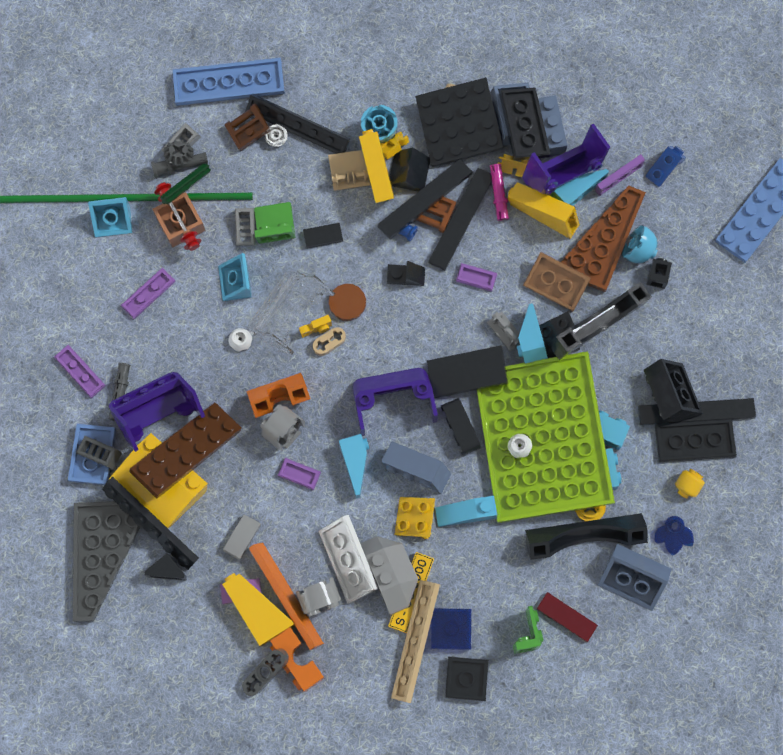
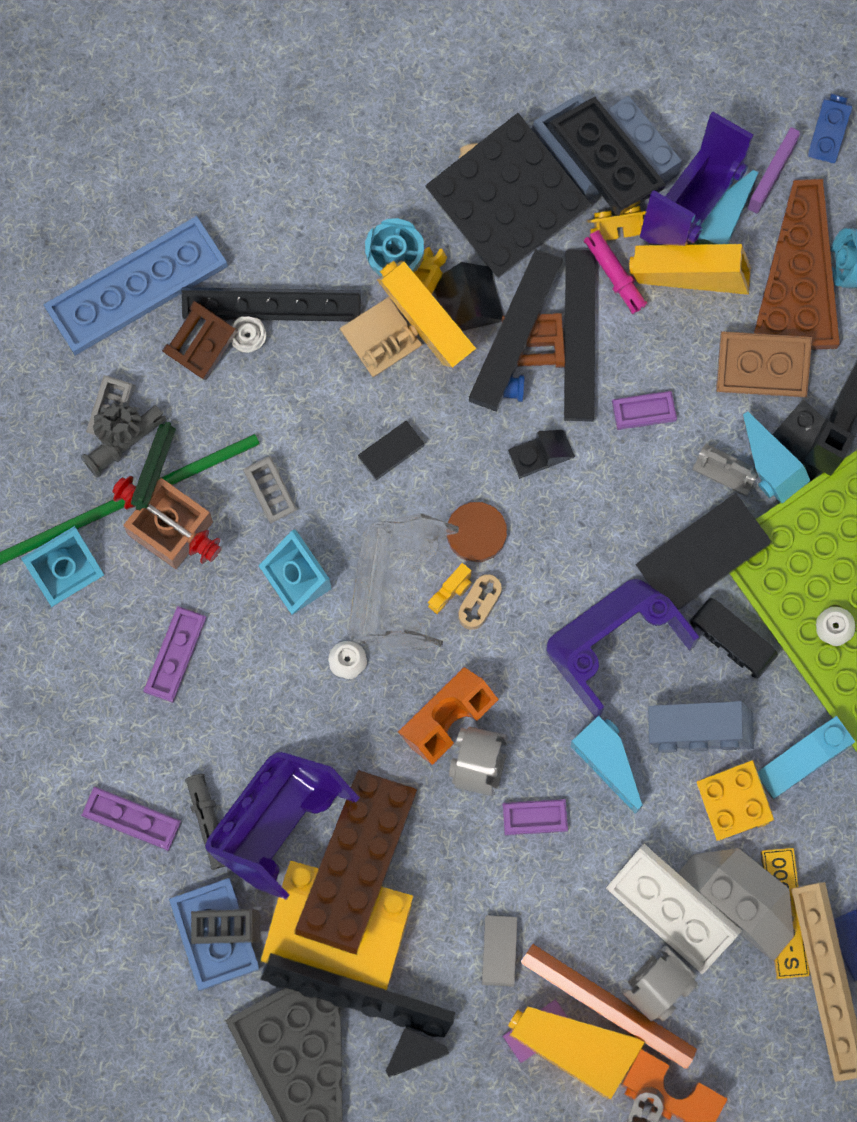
camera: 25 degrees left, 0 degrees up
(274, 223) = (311, 463): bright green bracket -> none

